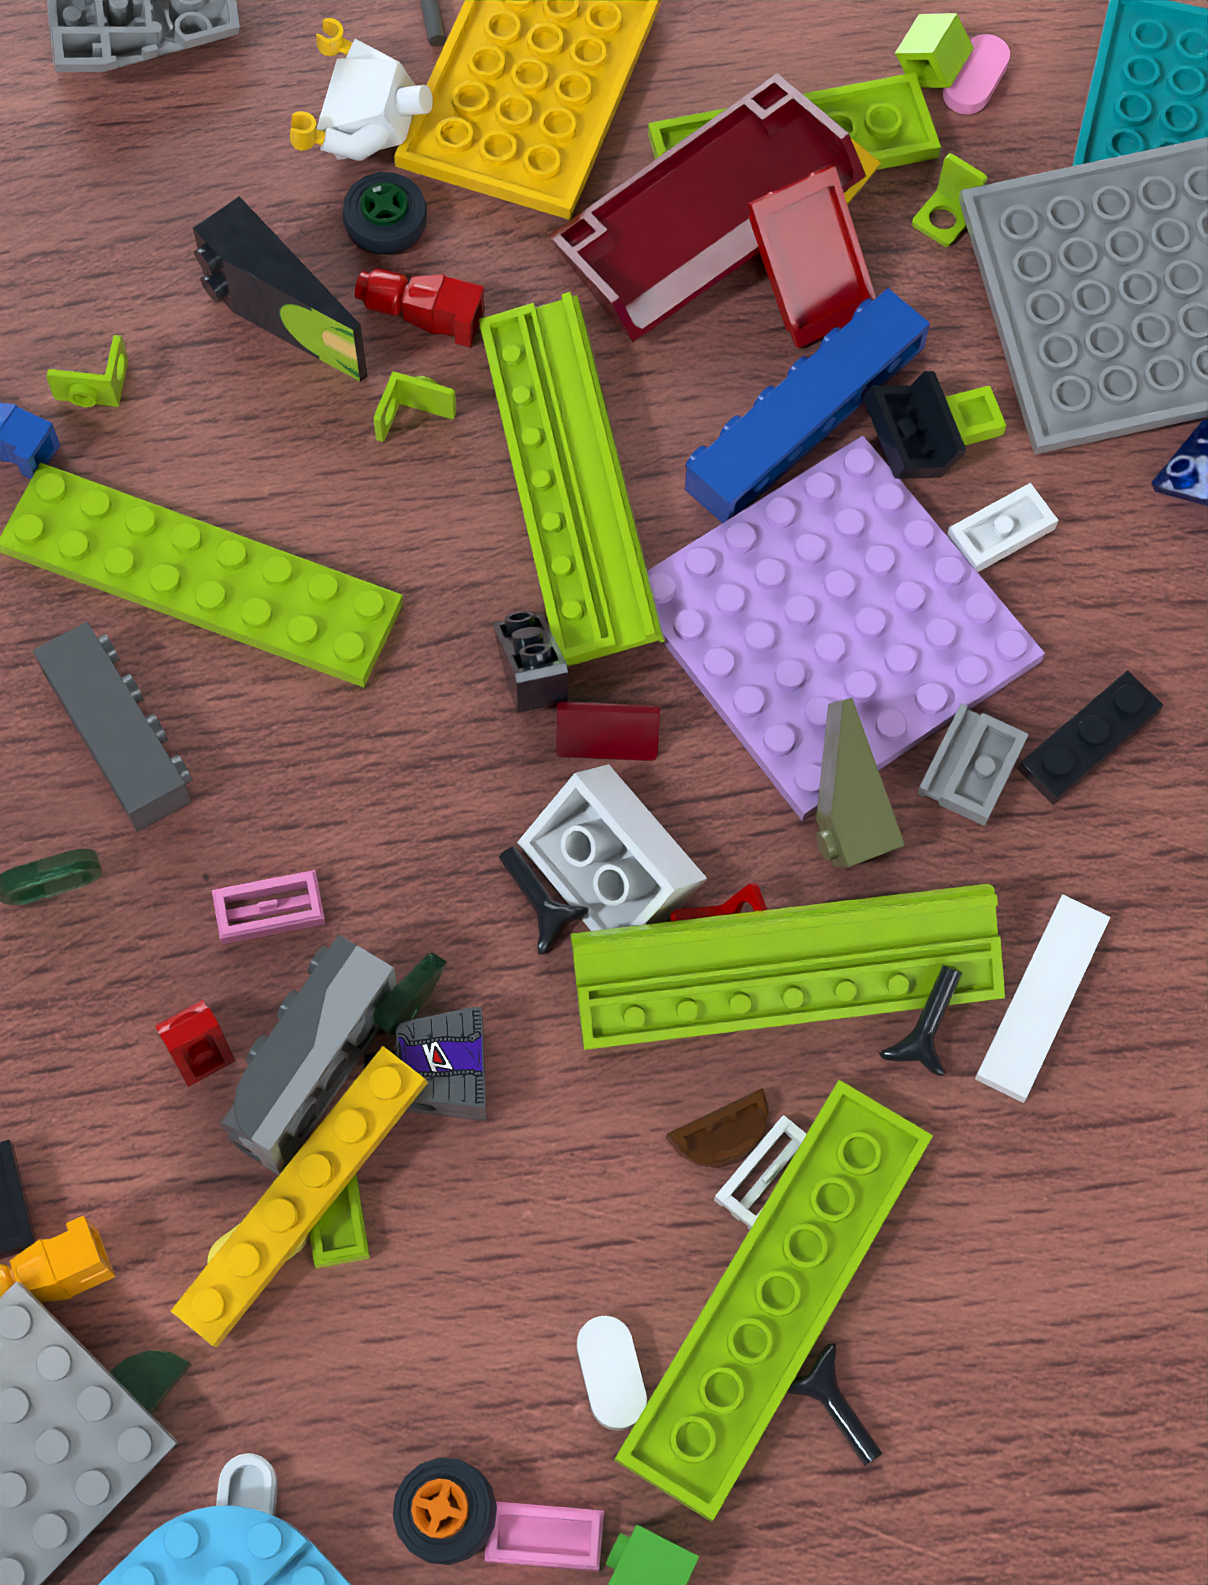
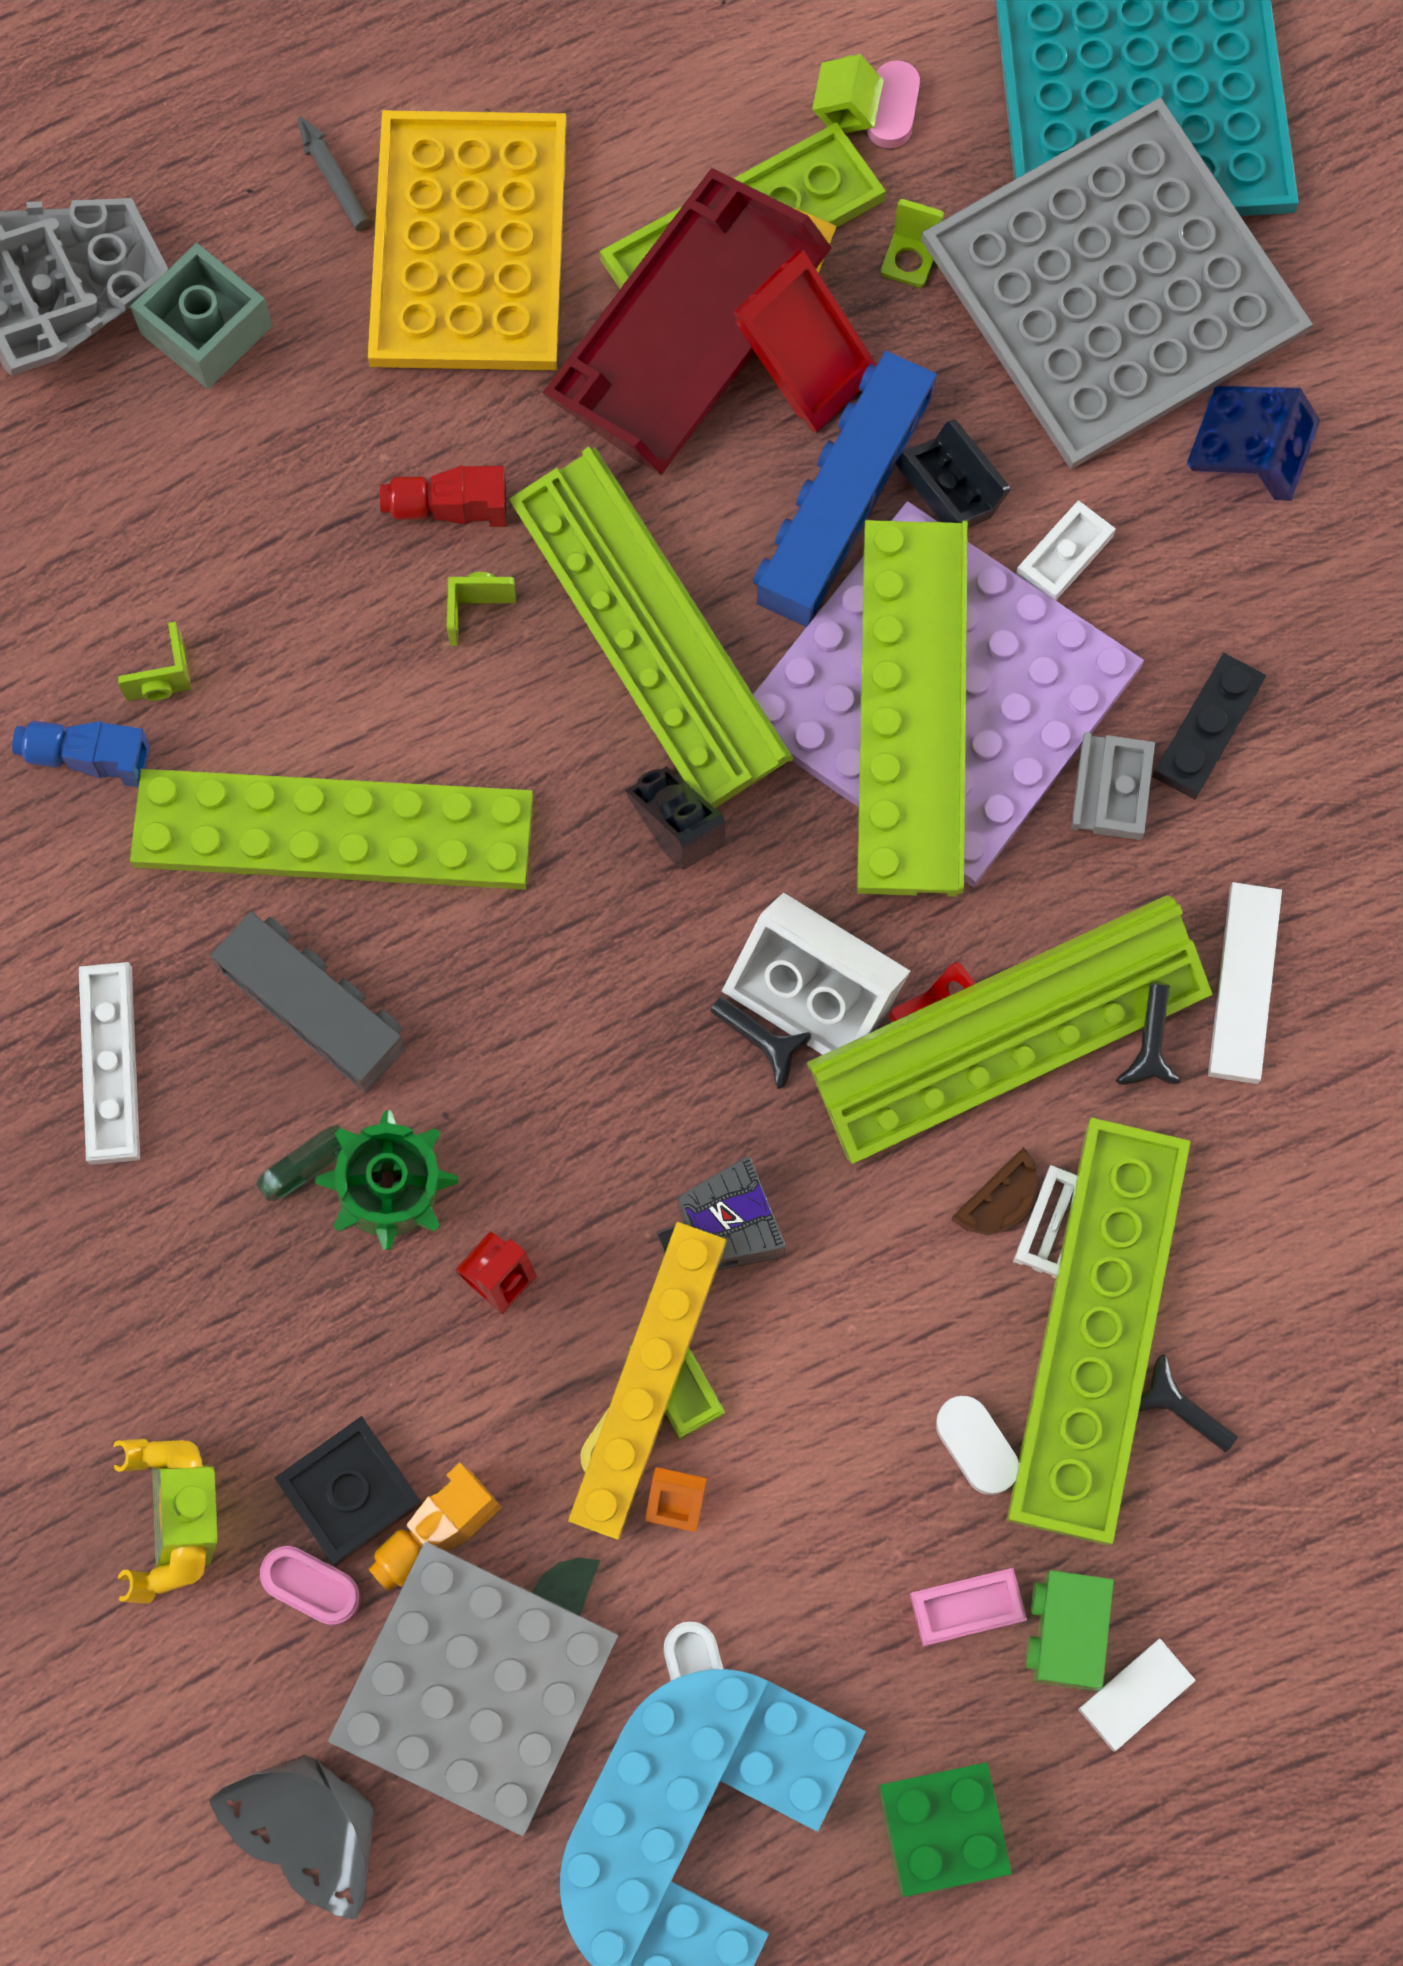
camera: 15 degrees left, 5 degrees up
(106, 892) = (382, 1150): none -> green brick
(254, 73) = (202, 315): none -> sand green brick
(272, 925) = (524, 1142): bright pink tile -> none
(274, 289) = (304, 530): black slope -> none
(287, 1325) = (676, 1499): none -> orange plate
(307, 1053) = (609, 1247): piece -> none
(365, 103) = (322, 313): white torso -> none
(378, 197) = (370, 402): black wheel -> none
(409, 994) = (678, 1163): clear green tile -> none
(425, 1502) = (855, 1614): black wheel -> none
(607, 731) = (769, 861): dark red slope -> none
(796, 630) = (913, 709): none -> lime plate
(852, 800) = (1015, 851): olive slope -> none
(977, 415) = (1007, 448): lime plate -> none

